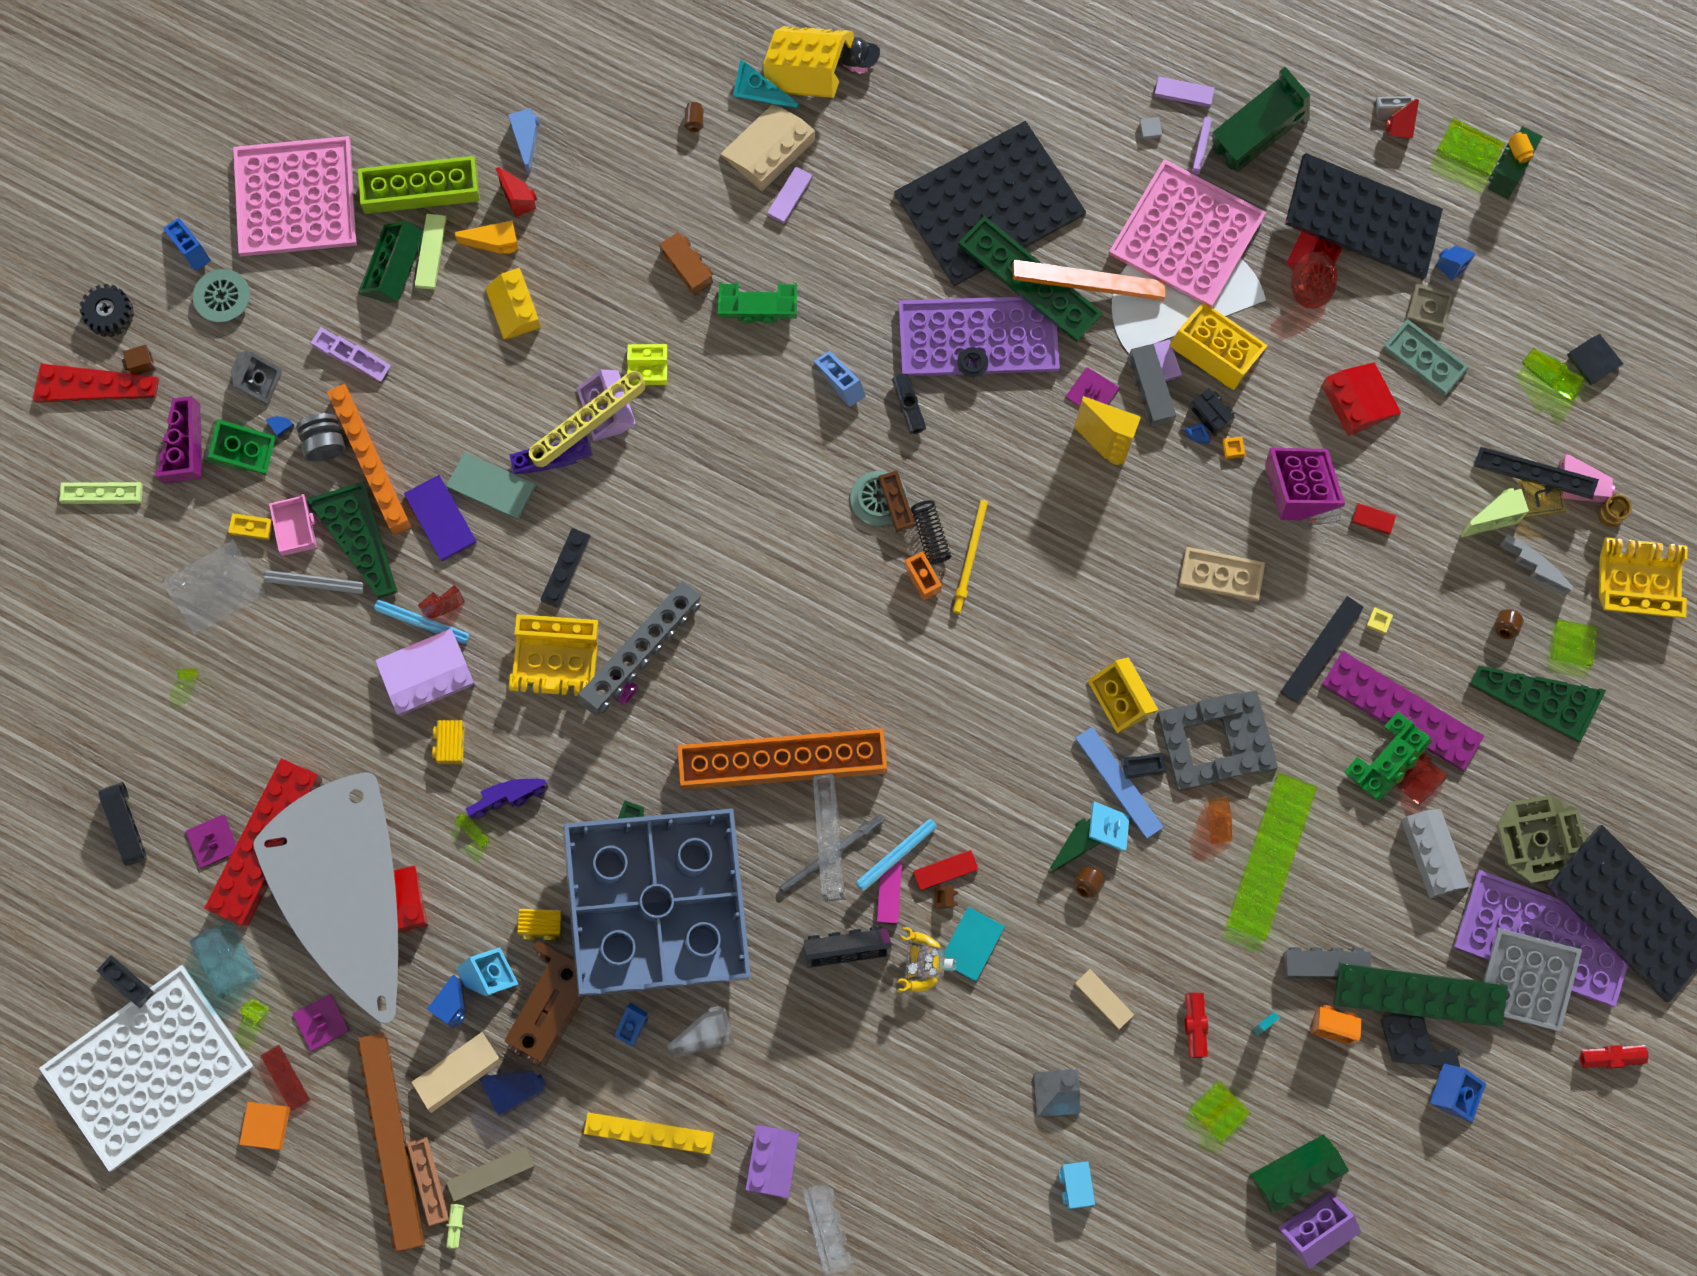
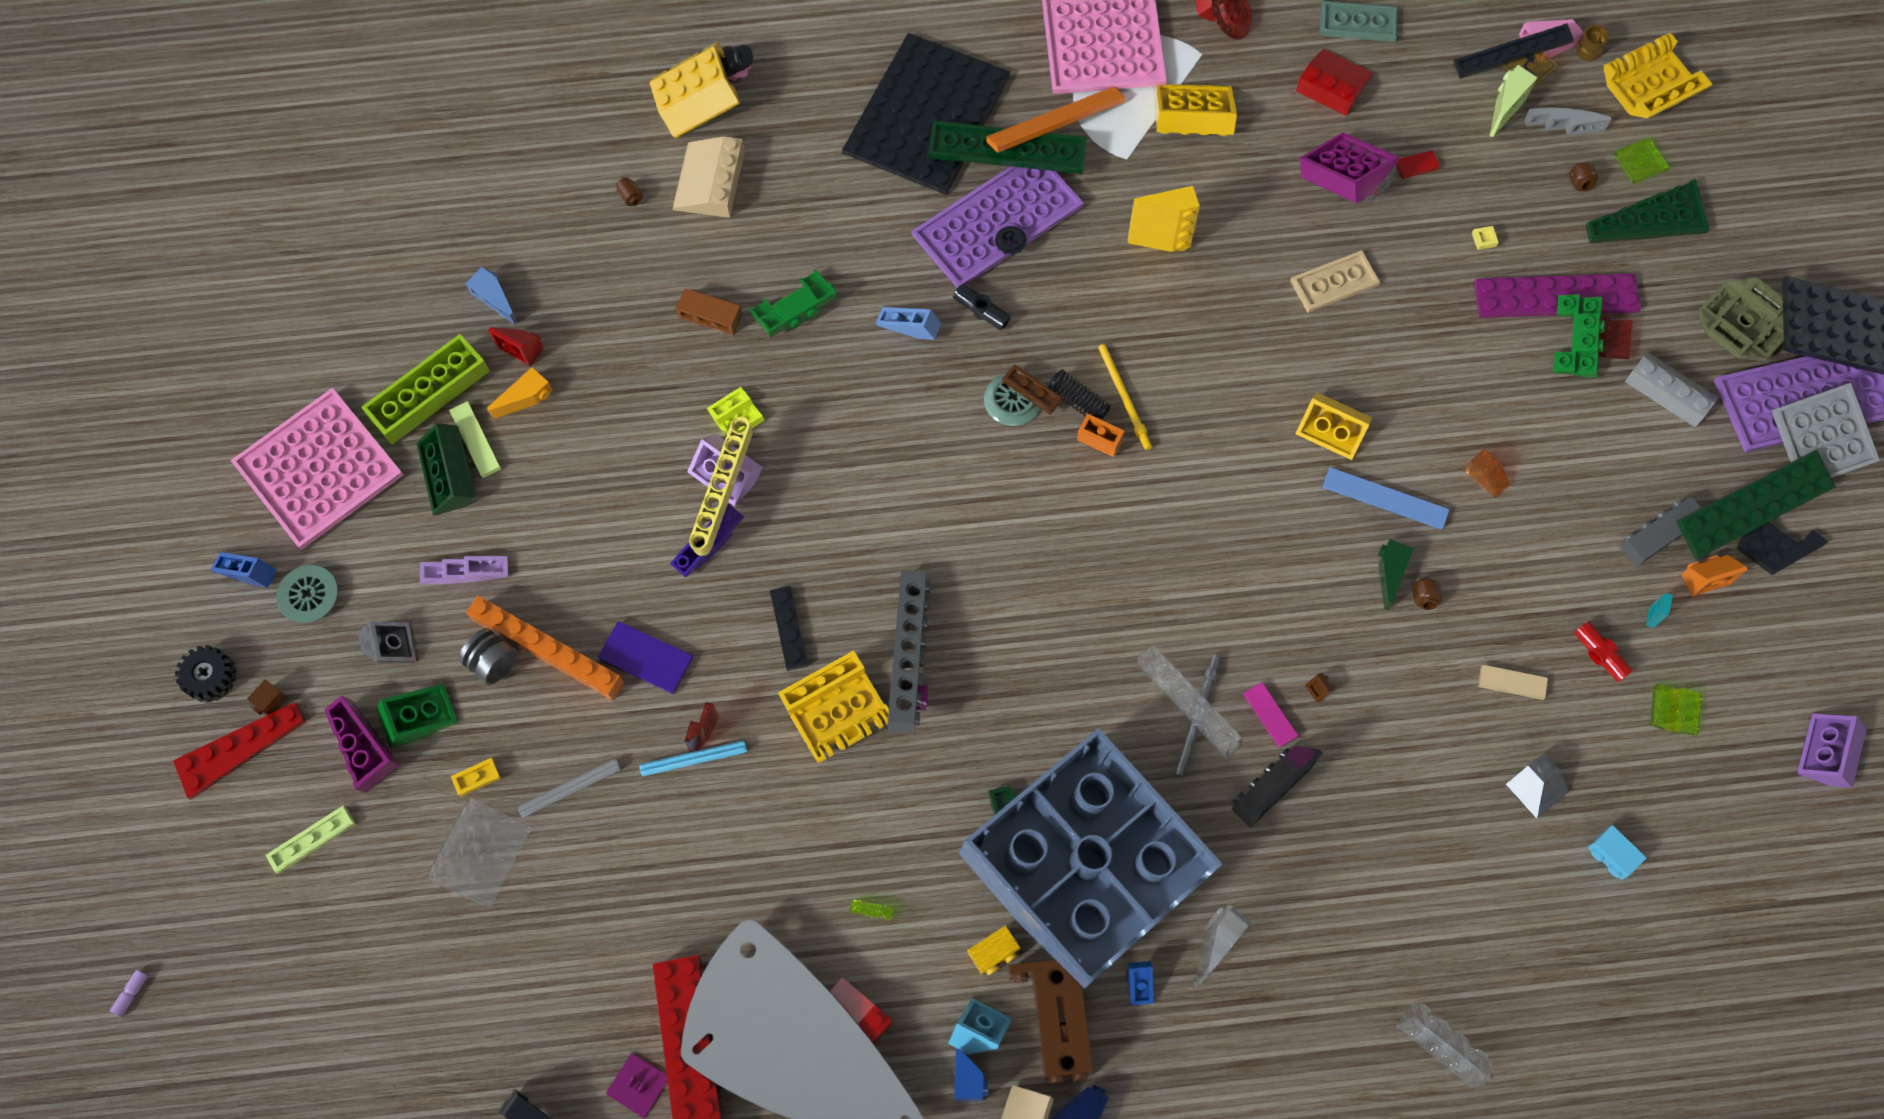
camera: 30 degrees left, 5 degrees down
(189, 673) = (507, 948): clear neon green tile -> none
(279, 424) = (440, 671): blue tile -> none
(293, 525) = (515, 750): bright pink container -> none
(354, 526) = (572, 715): dark green wing -> none
(425, 672) = (729, 799): lavender slope -> none
(449, 742) = (795, 845): yellow brick -> none
(491, 486) = (671, 601): sand green tile -> none
(512, 304) = (581, 437): yellow slope -> none
(513, 791) = (884, 850): dark purple slope -> none
(649, 1133) = (1226, 1070): yellow plate -> none
(756, 87) = (666, 137): teal wing -> none
(772, 1161) = (1350, 1018): medium lavender slope -> none
(781, 759) = (1097, 664): orange brick -> none
(789, 195) = (756, 205): lavender tile -> none
(896, 855) = (1254, 679): medium azure axle -> none
(924, 962) = (1348, 753): torso -> none
(945, 870) = (1302, 665): red tile -> none
(973, 943) = (1371, 711): teal tile -> none
(1092, 386) = (1118, 205): magenta piece -> none
(1109, 826) = (1408, 537): medium azure piece -> none
(1143, 765) = (1394, 471): black tile -> none
(1152, 385) = (1164, 167): dark grey brick -> none
(1167, 360) = (1161, 146): lavender tile -> none
(1198, 433) = (1230, 186): blue tile -> none
(1212, 411) = (1229, 161): black brick -> none
(1233, 448) = (1267, 179): light orange tile -> none
(1245, 734) = (1449, 391): dark grey piece -> none
(1271, 856) = (1550, 476): clear neon green plate -> none
(1299, 1173) = (1780, 715): dark green slope -> none
(1321, 649) = (1458, 289): black tile -> none
(1458, 1092) = (1843, 563): blue slope -> none

